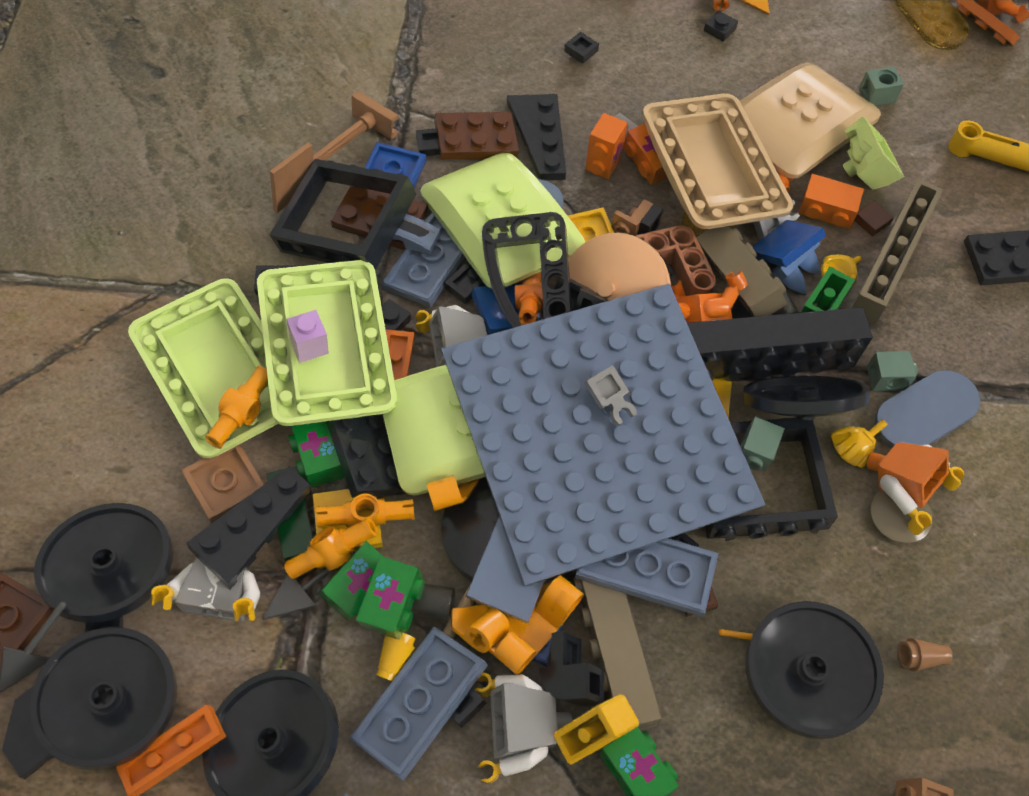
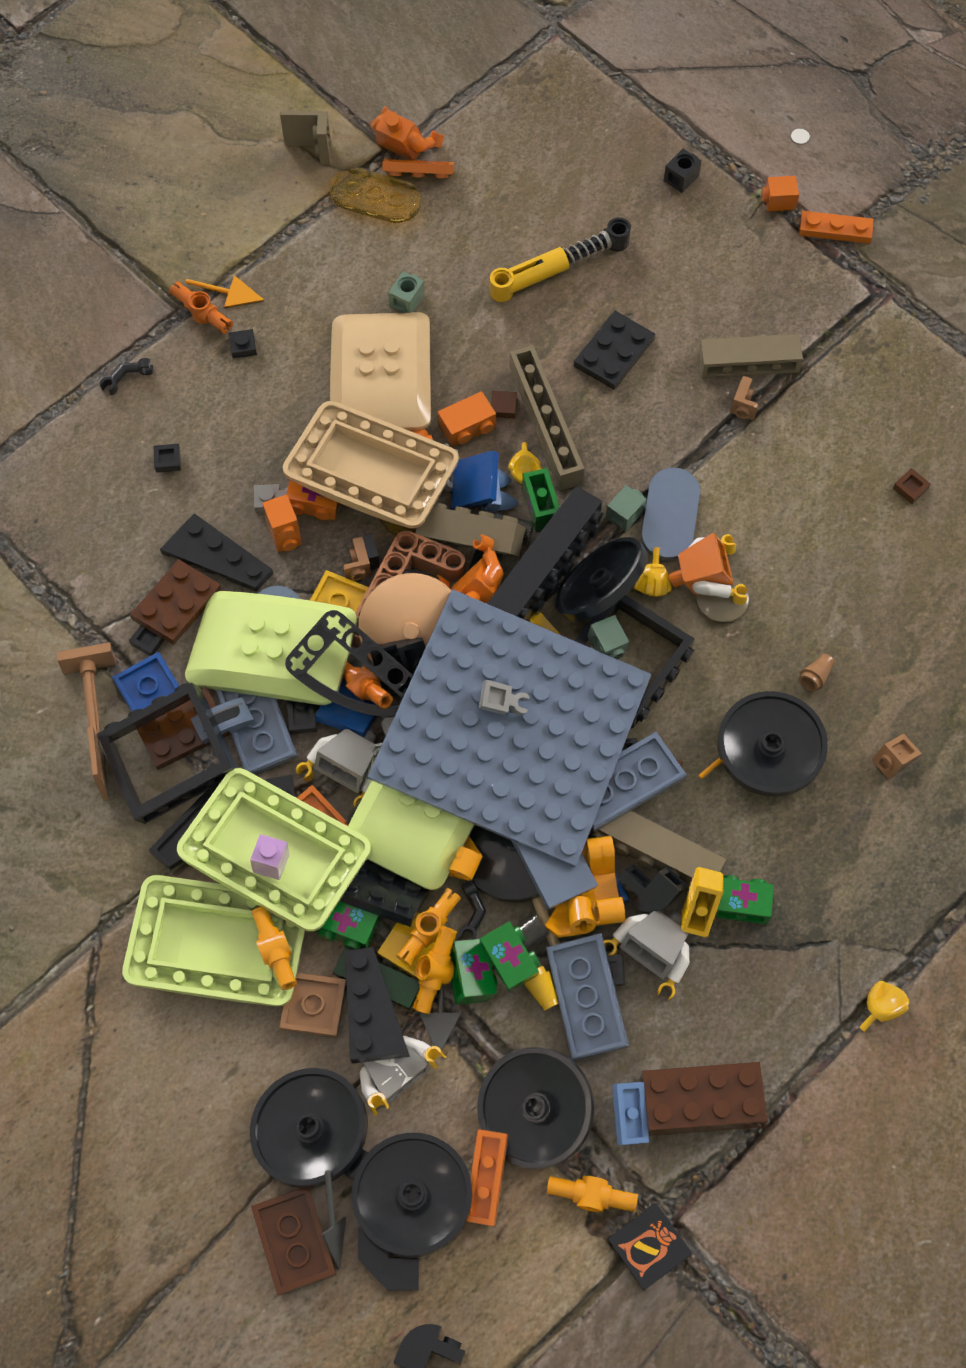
camera: 45 degrees left, 5 degrees up
(431, 527) = (479, 910): none -> black arm
(871, 156) = (459, 359): yellowish green brick -> none

